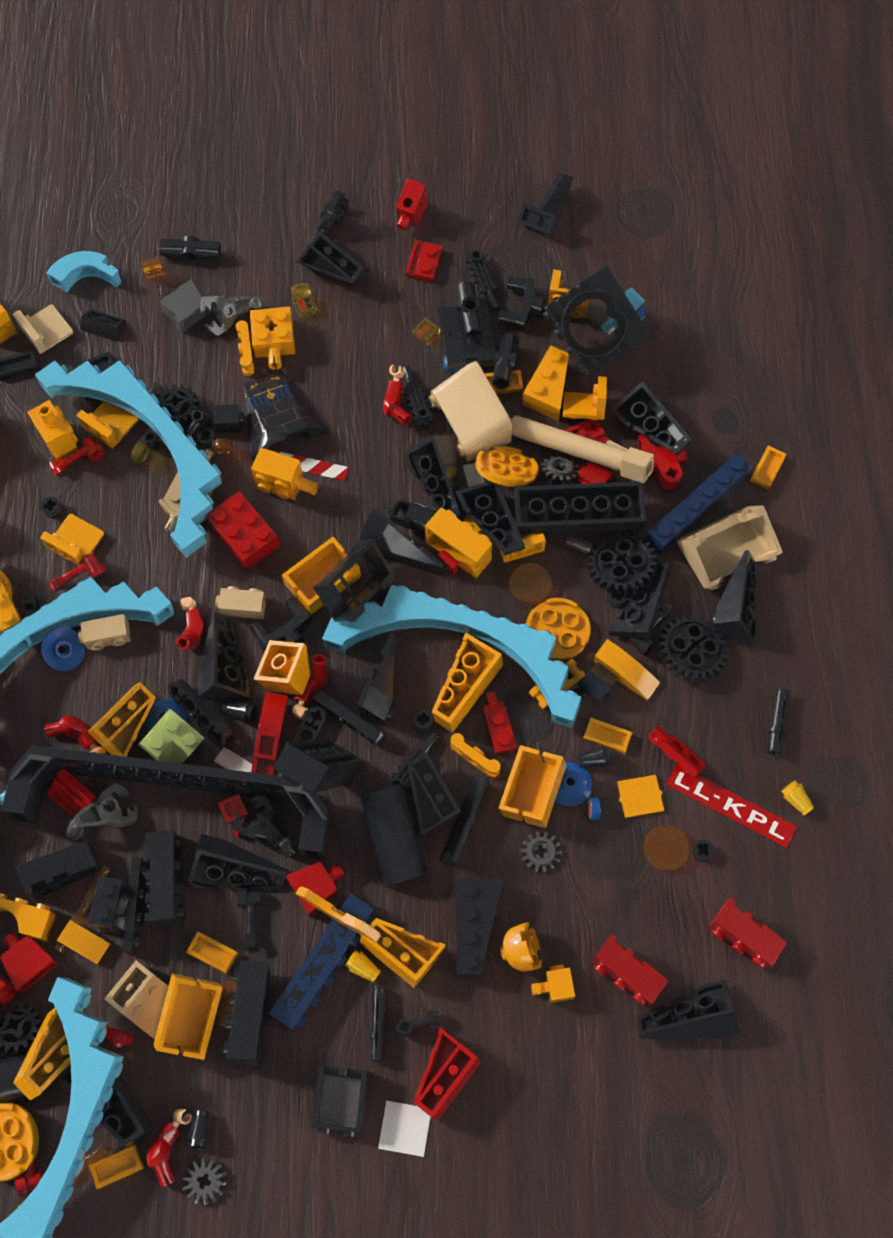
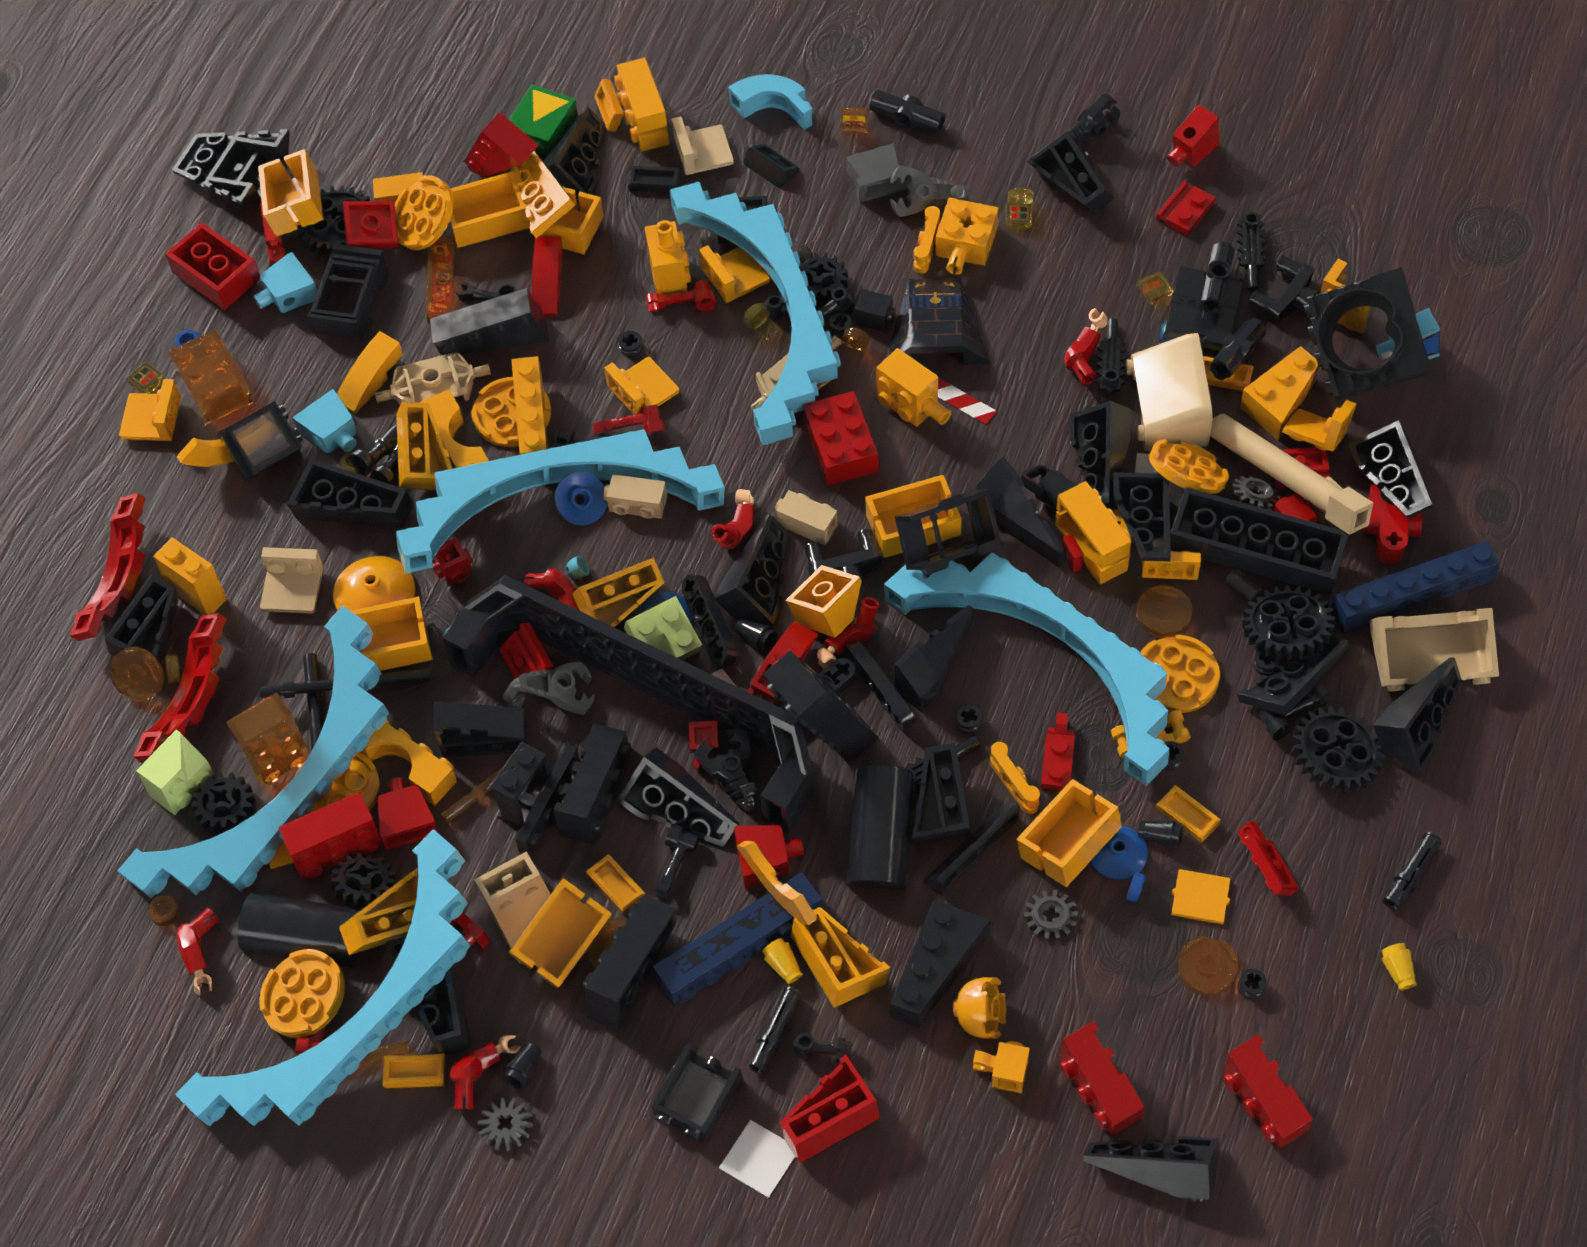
camera: 25 degrees right, 10 degrees down
(82, 706) = (577, 568): none -> medium azure hinge
(83, 942) = (475, 818): light orange tile -> none
(466, 681) = (1037, 691): light orange wedge -> none
(543, 216) = (1359, 198): black piece -> none
(599, 682) = (1202, 746): black brick -> none
(627, 669) = (1242, 745): light orange slope -> none
(732, 806) = (1313, 949): red sticker -> none
(768, 467) = (1525, 577): light orange tile -> none

